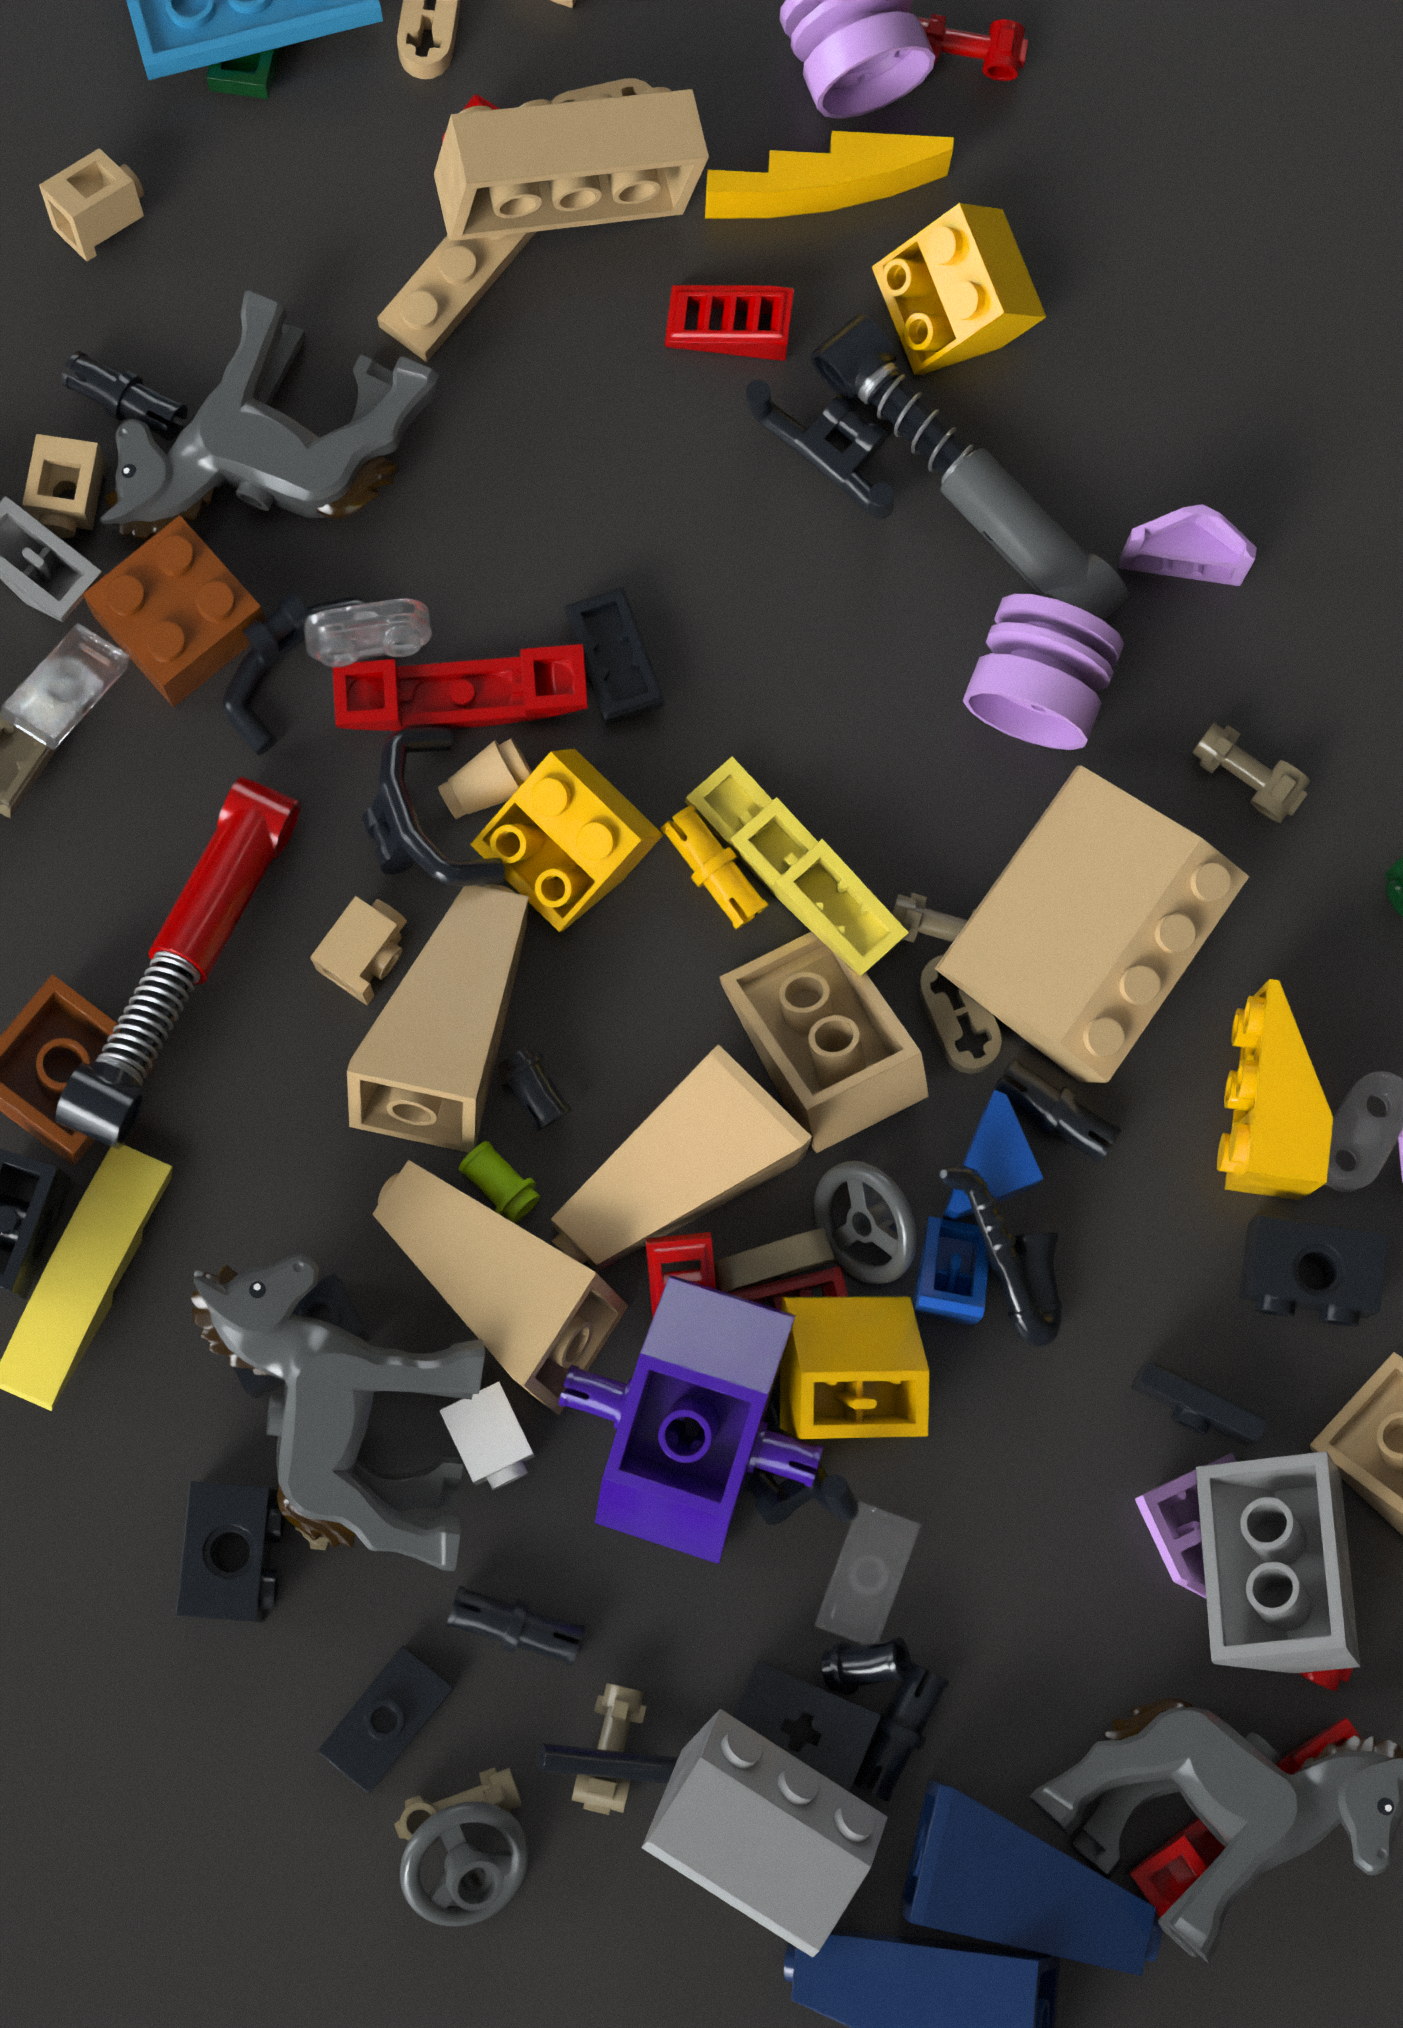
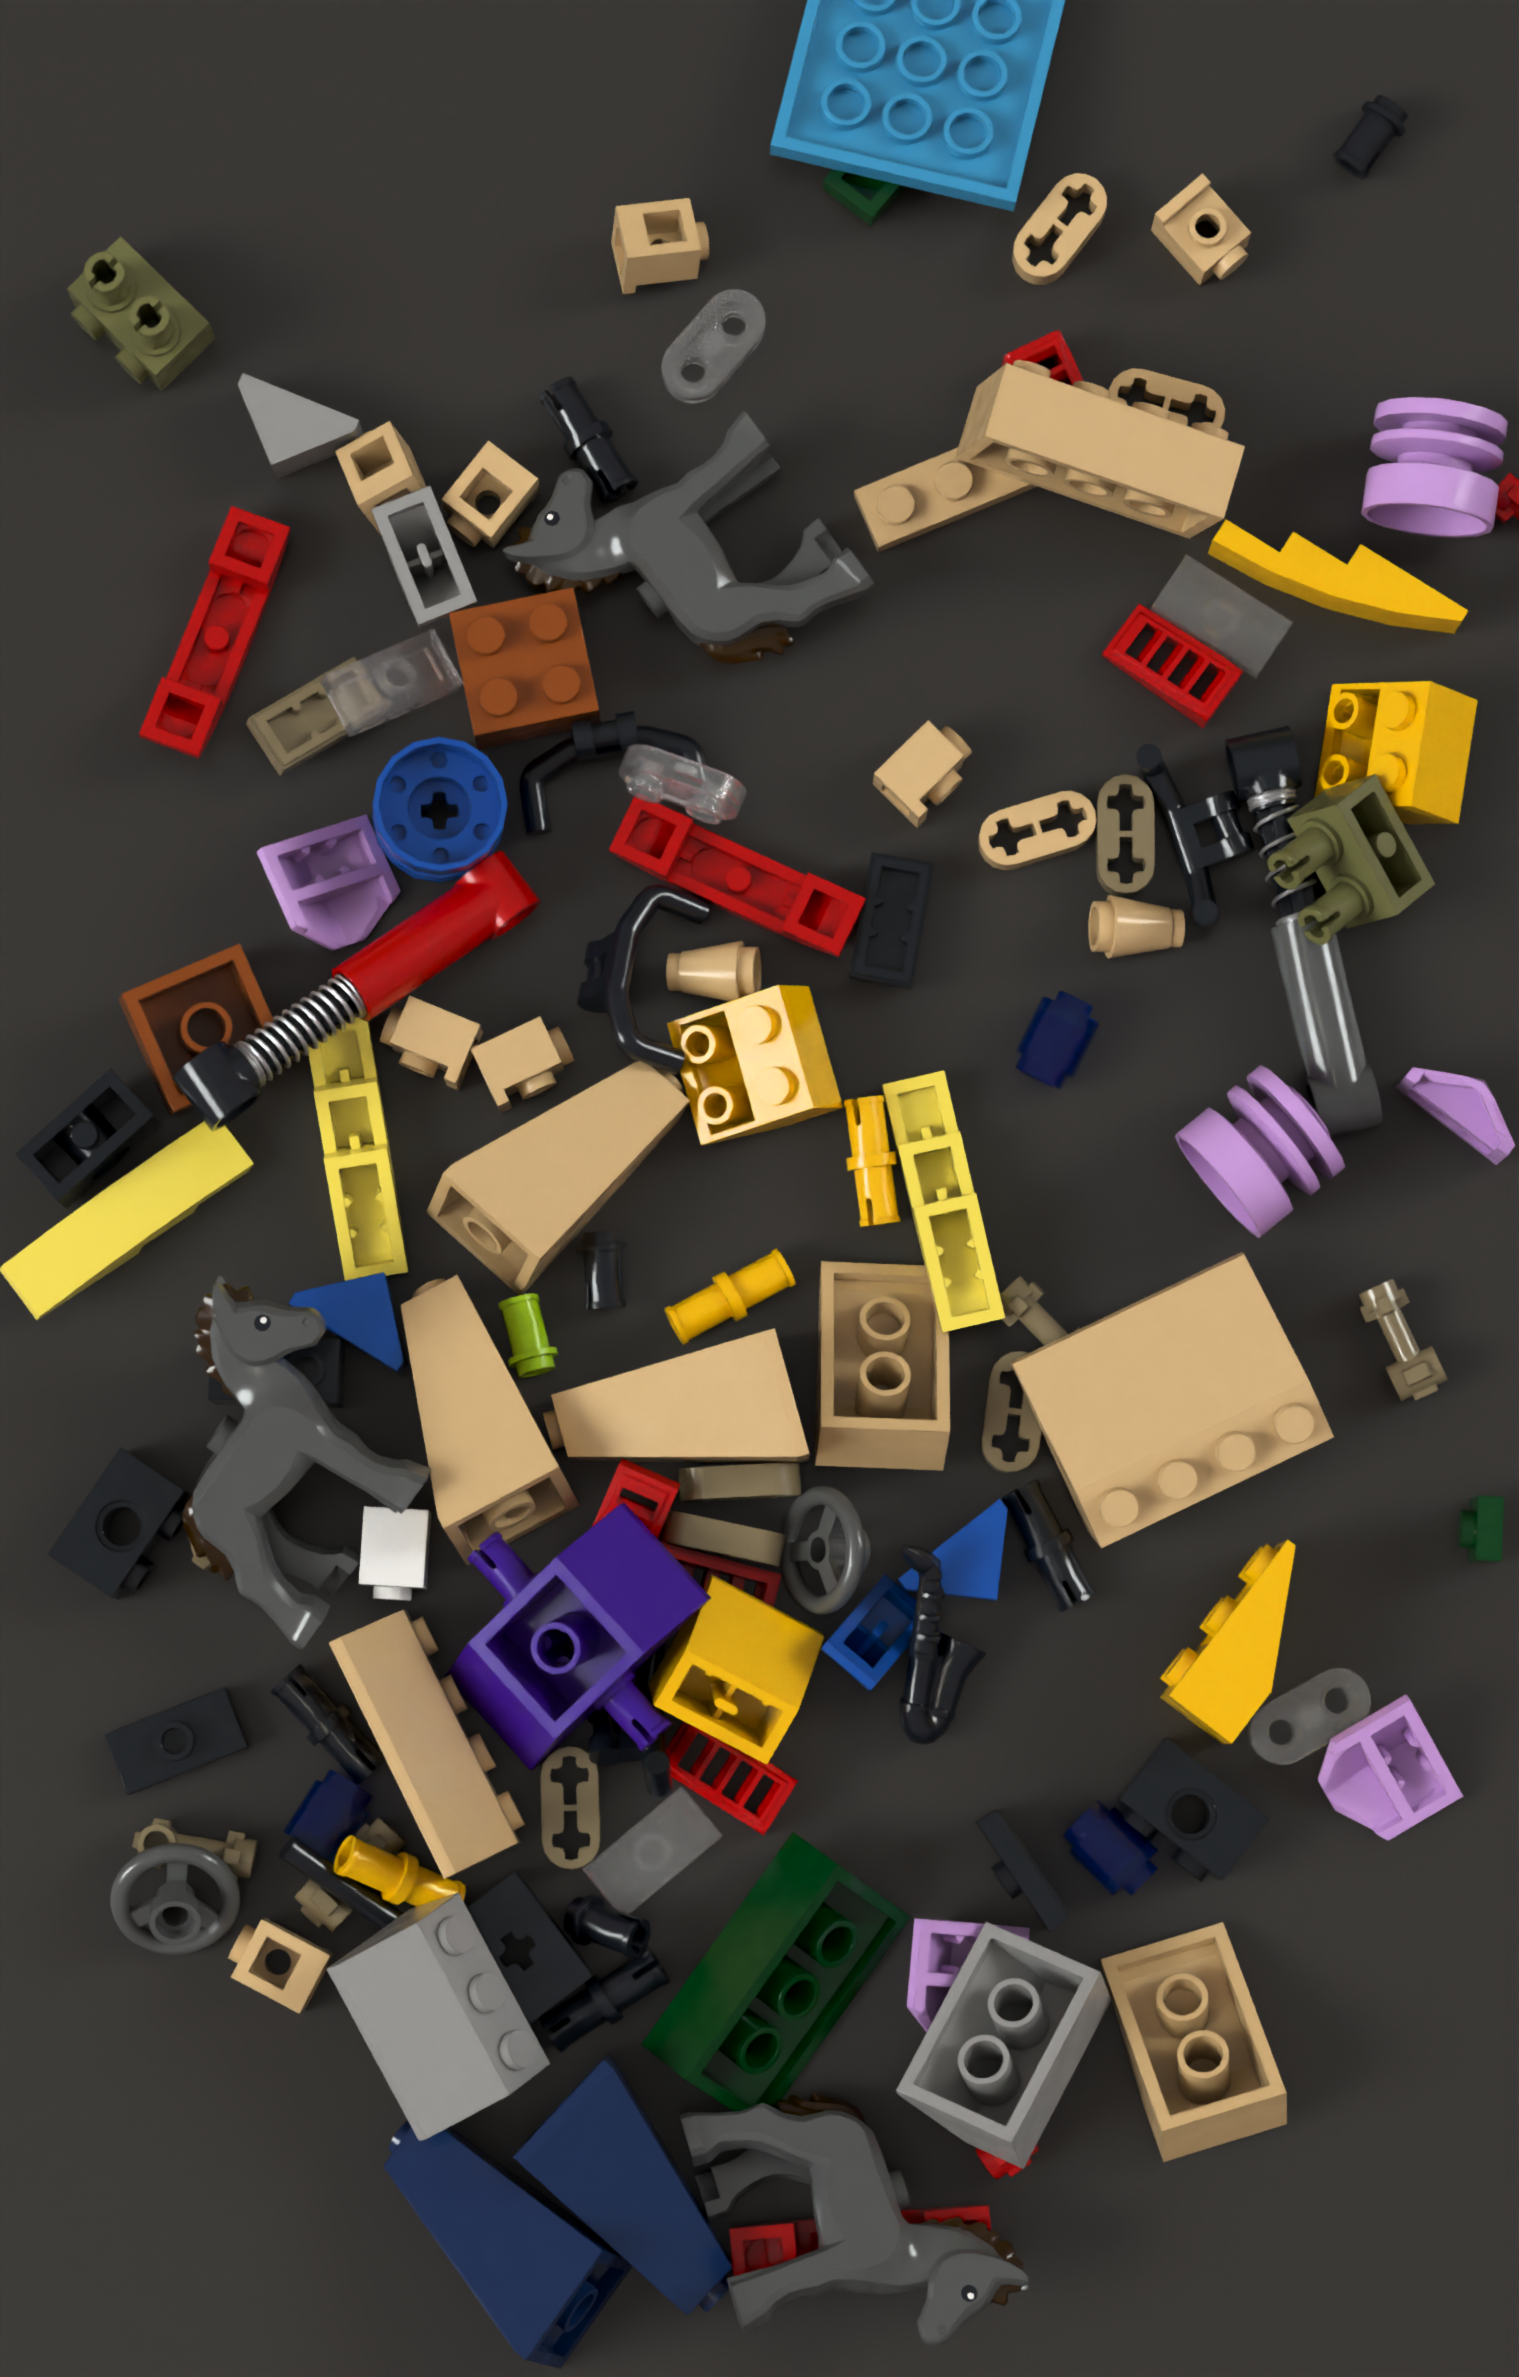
camera: 35 degrees right, 5 degrees up
(106, 884) = (331, 882): none -> lavender slope
(157, 733) = (445, 772): none -> blue wheel
(188, 266) = (711, 347): none -> clear plate
(260, 1106) = (357, 1153): none -> light yellow slope
(271, 971) = (432, 1040): none -> tan brick
(345, 1246) = (362, 1315): none -> blue slope
(562, 1706) = (329, 1814): none -> clear blue brick
(568, 516) = (922, 771): none -> tan brick
(613, 1590) = (426, 1742): none -> tan slope
(613, 1886) = (295, 1986): none -> tan brick
(650, 1728) = (394, 1875): none -> yellow pin
(657, 1050) = (729, 1296): none -> yellow pin
(684, 506) = (1032, 815): none -> tan beam
(747, 255) = (1221, 616): none -> clear plate
(758, 1205) = (739, 1482): none -> dark tan beam
(783, 474) = (1140, 836): none -> dark tan beam
(786, 1568) = (554, 1808): none -> dark tan beam
(813, 678) = (1056, 1039): none -> clear blue brick
(823, 550) = (1133, 927): none -> tan cone
(949, 1468) = (771, 1804): none -> red slope
(980, 382) = (1359, 855): none -> olive brick
(1040, 1624) = (776, 1979): none -> dark green slope
(1264, 1342) = (1111, 1849): none -> clear blue brick

